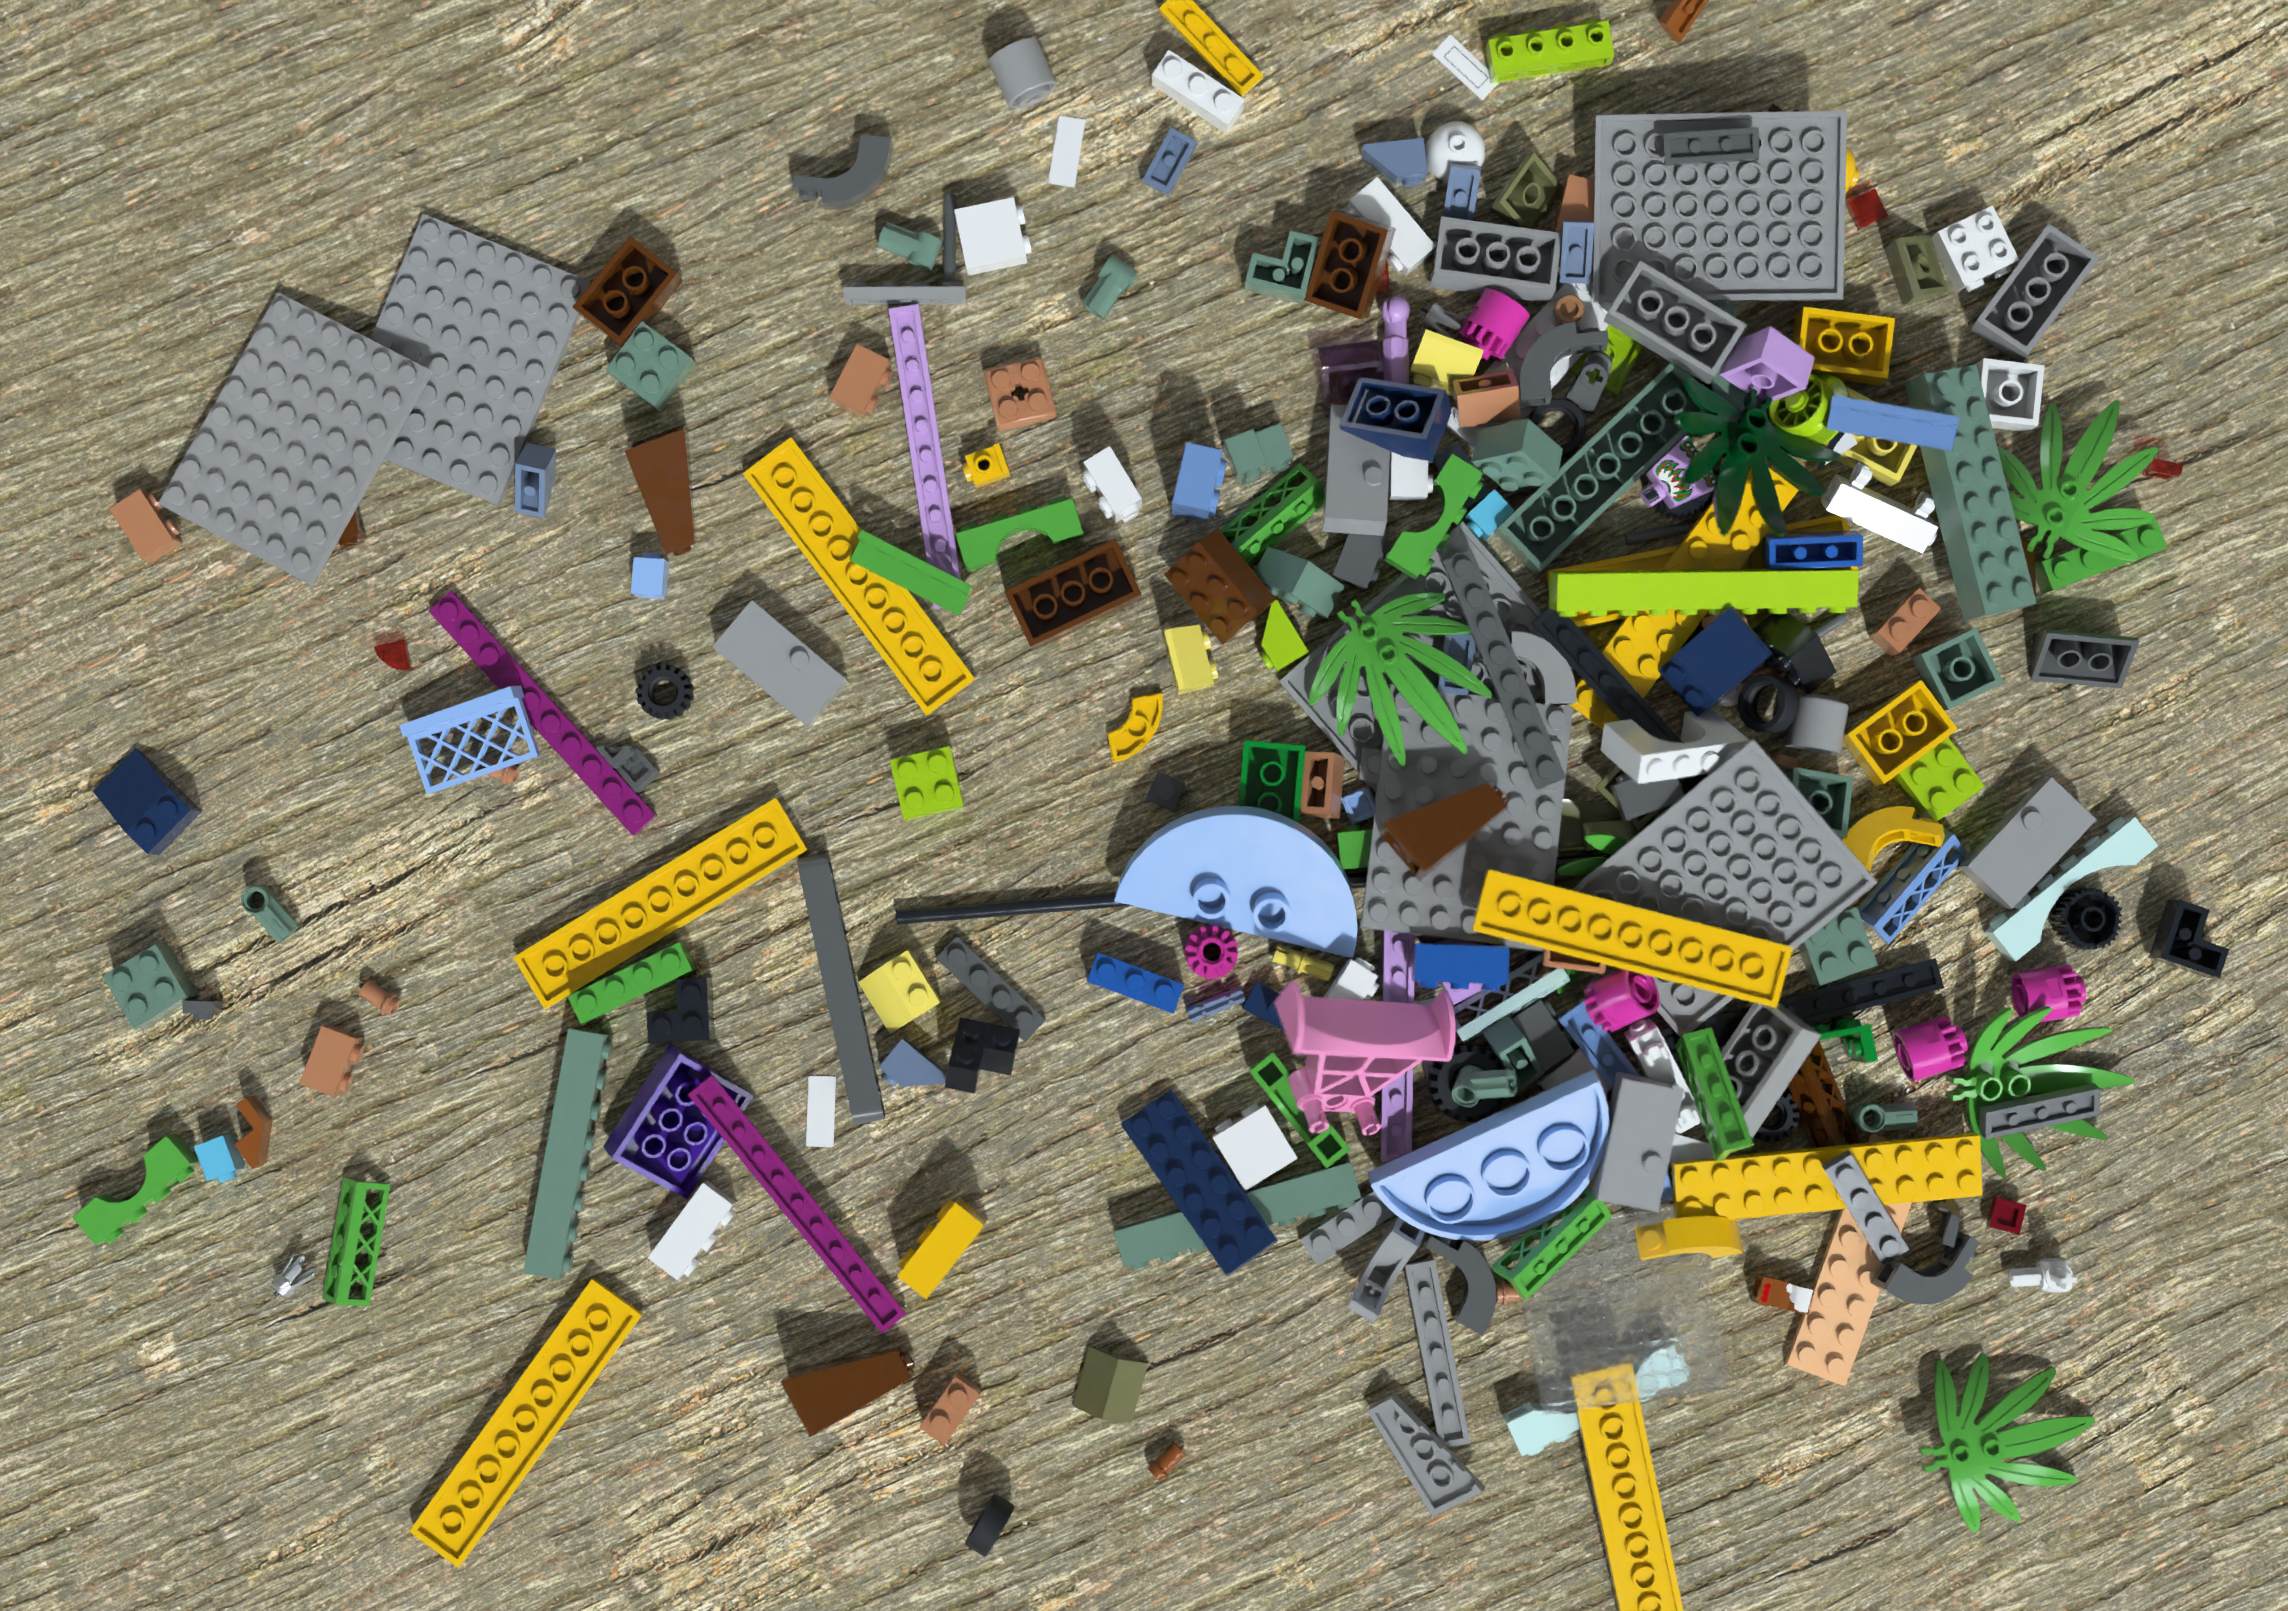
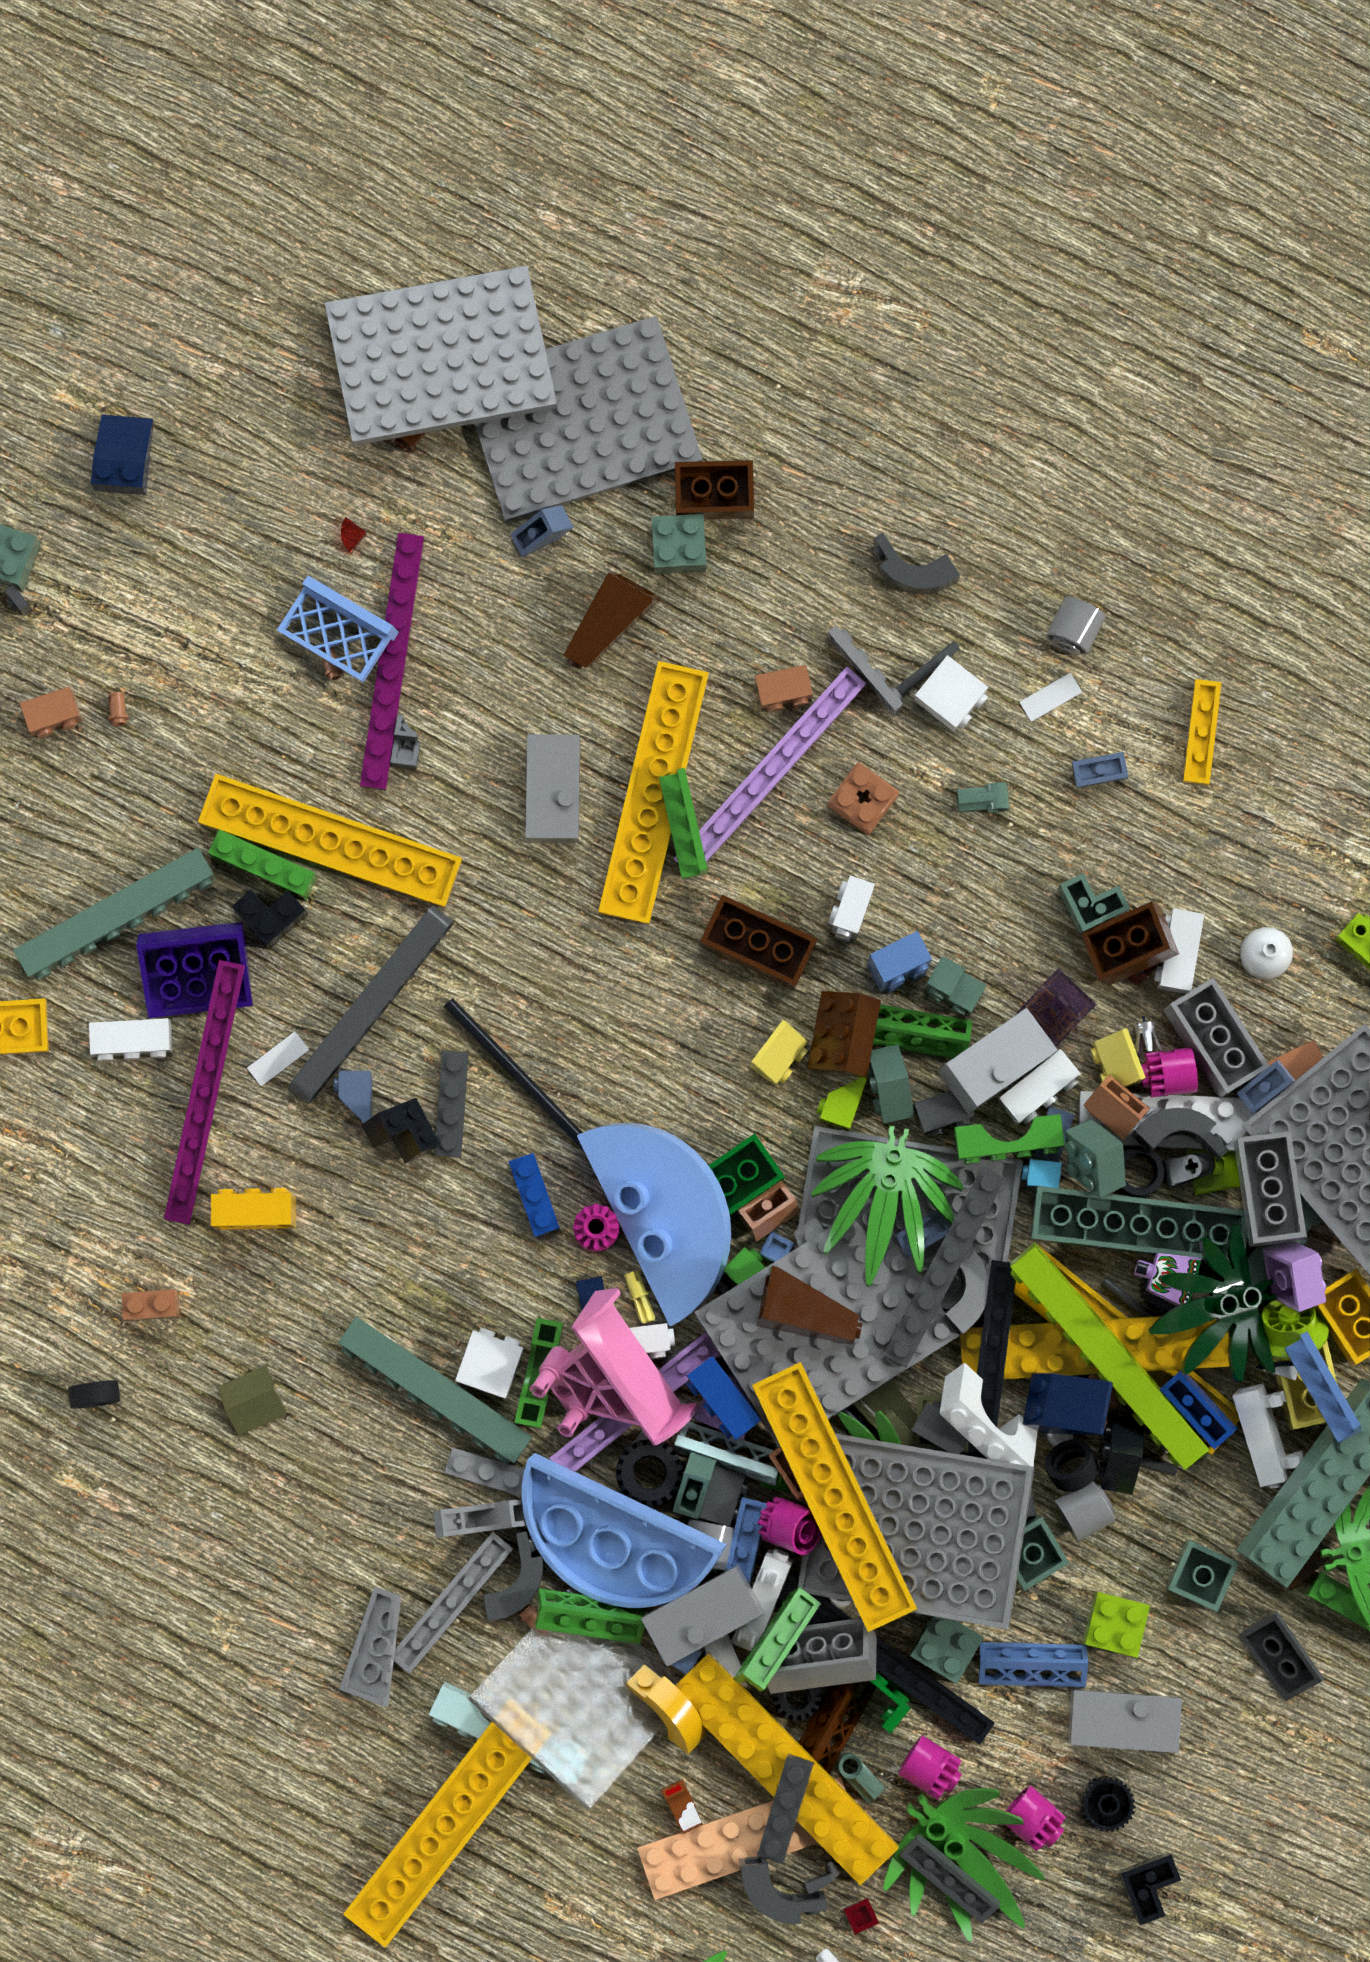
camera: 50 degrees right, 5 degrees down
(146, 525) = (304, 307): nougat brick -> none
(272, 914) = (115, 595): sand green piece -> none
(650, 576) = (540, 656): light blue brick -> none
(677, 705) = (472, 744): black tyre -> none
(840, 1387) = (105, 1220): reddish brown slope -> none
(900, 991) = (401, 1045): light yellow slope -> none
(918, 248) = (902, 651): sand green piece -> none
(927, 783) = (553, 949): lime brick -> none
(982, 543) = (742, 855): bright green arch -> none
(996, 471) = (800, 824): yellow brick -> none
(1138, 728) = (705, 1059): yellow tile -> none
(1165, 791) = (678, 1111): dark grey plate -> none
(1166, 1461) = (231, 1479): dark orange pin -> none
(1197, 92) = (1161, 750): white brick -> none
(1199, 1183) = (435, 1346): dark blue plate -> none
(1215, 1004) = (564, 1261): sand blue axle -> none
(1395, 346) = (1104, 1019): lavender piece -> none
(1398, 160) = (1228, 920): sand blue slope -> none
(1398, 417) = (1053, 1058): dark blue slope -> none
(1462, 191) = (1242, 978): sand blue plate -> none
(1465, 66) = (1330, 913): white sticker -> none
(1479, 1084) = (653, 1476): sand green piece -> none
(1527, 194) = (1278, 1023): olive slope -> none
(1568, 309) = (1223, 1114): medium nougat tile -> none
(1785, 761) = (1043, 1509): medium nougat tile -> none
(1889, 826) = (1053, 1613): yellow arch -> none
(1898, 733) = (1125, 1570): yellow brick -> none
(1904, 622) = (1204, 1514): nougat brick -> none
(2022, 927) = (1063, 1765): light aqua arch -> none

